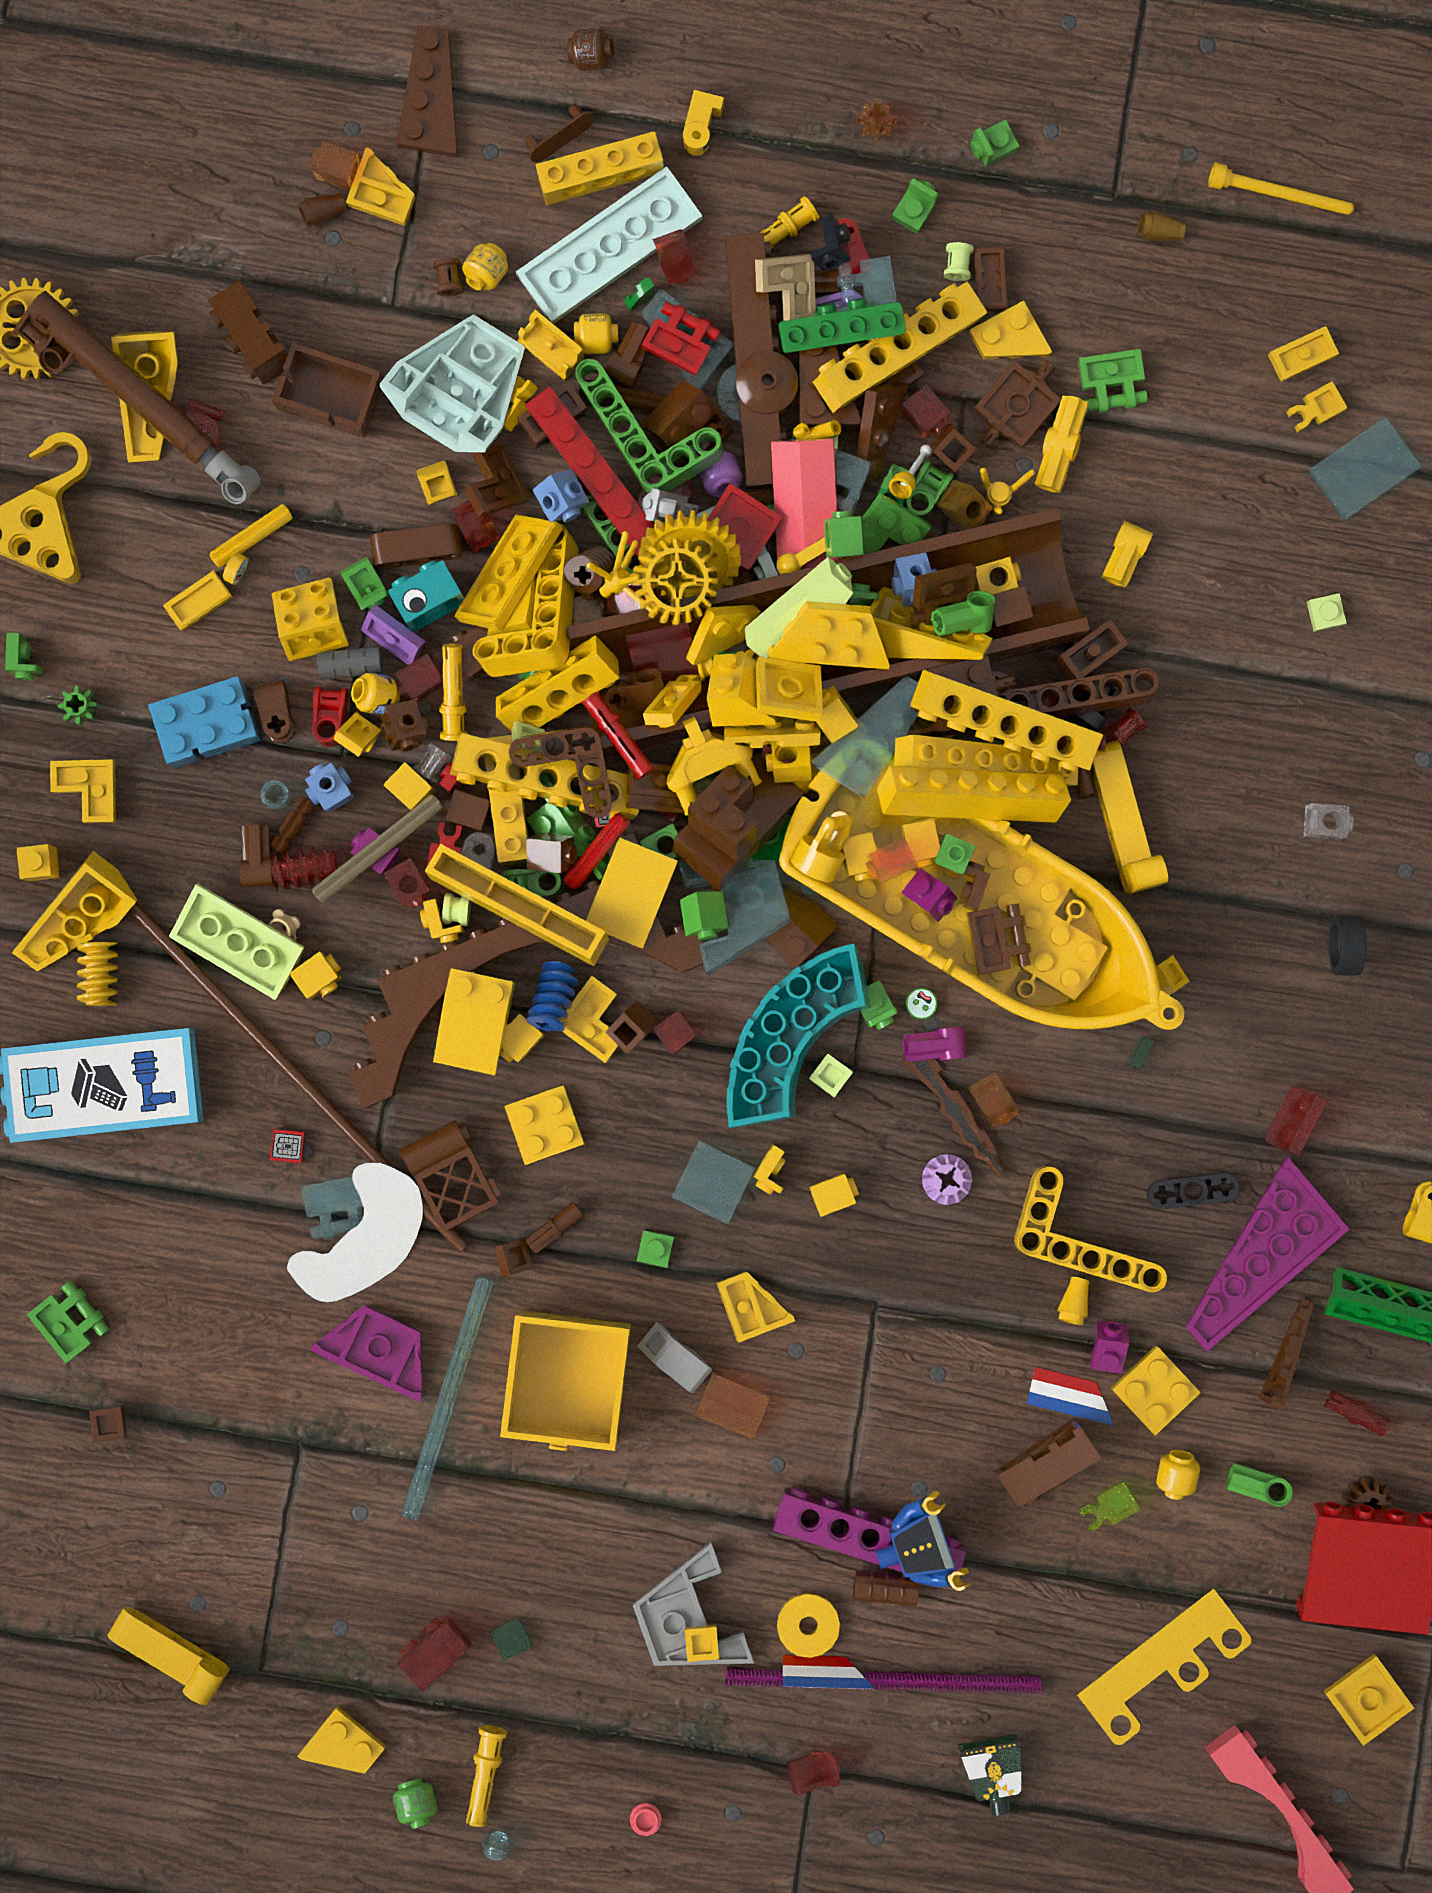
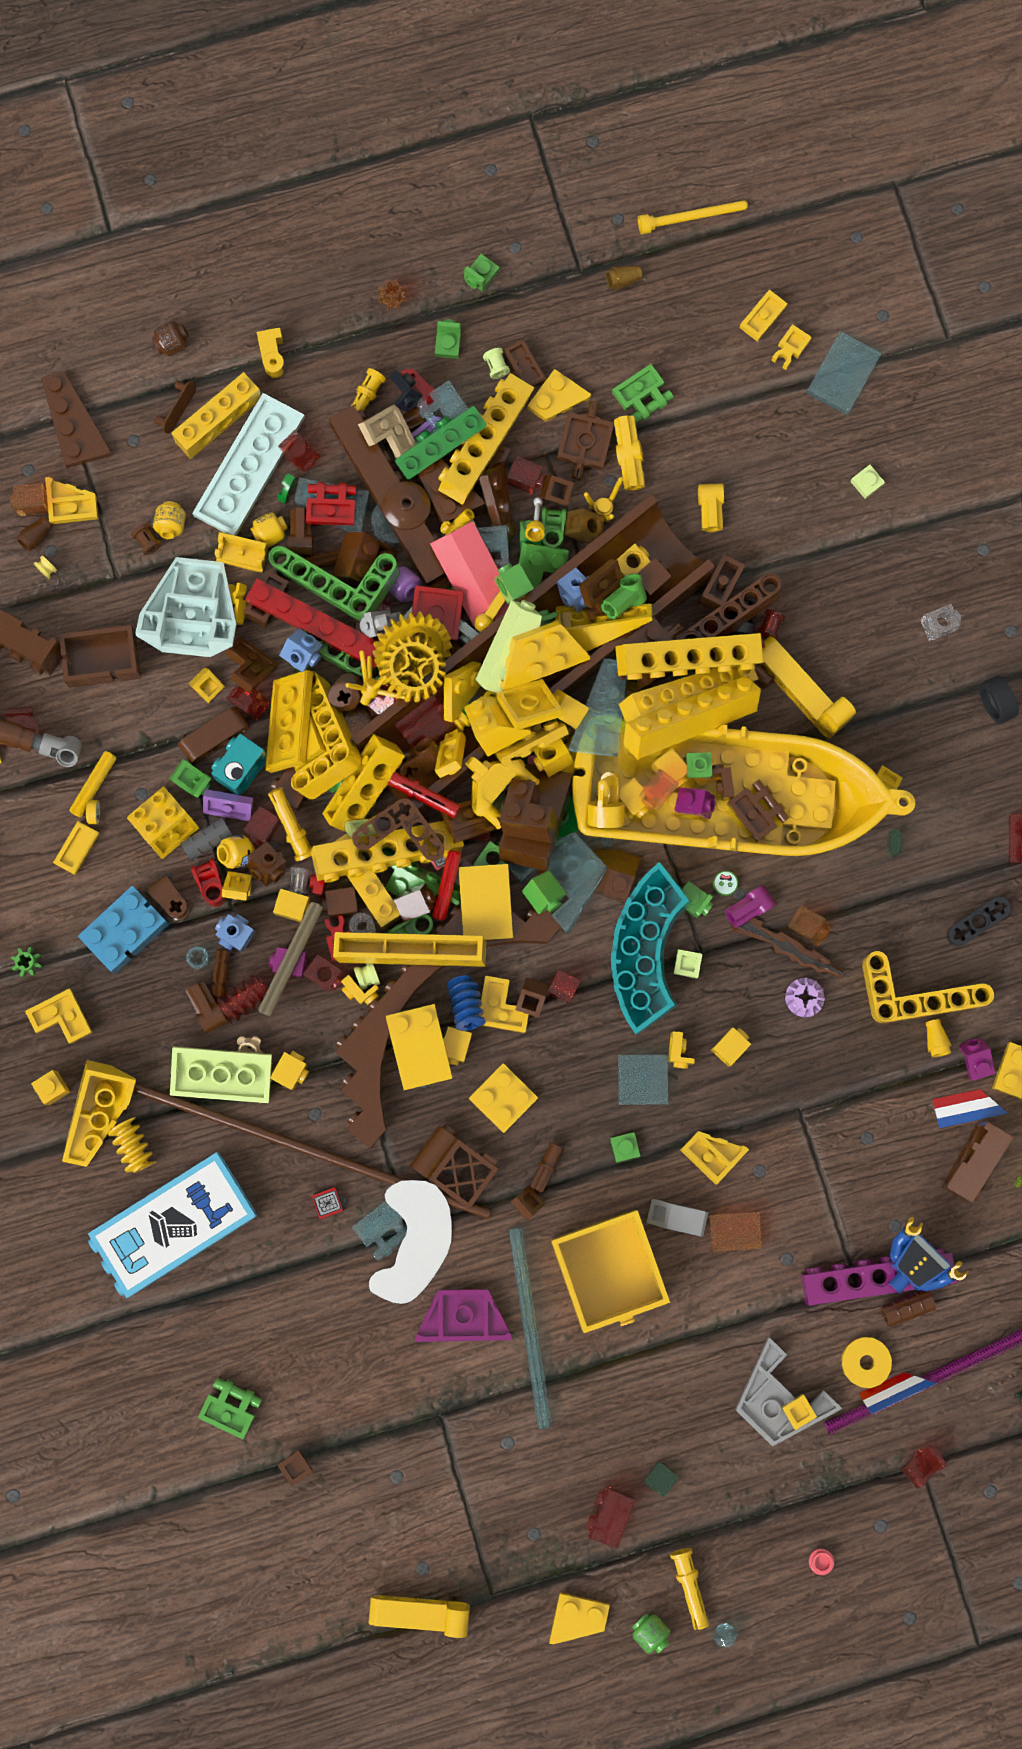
camera: 30 degrees left, 5 degrees down
(316, 254) = (45, 567): none -> light yellow bush

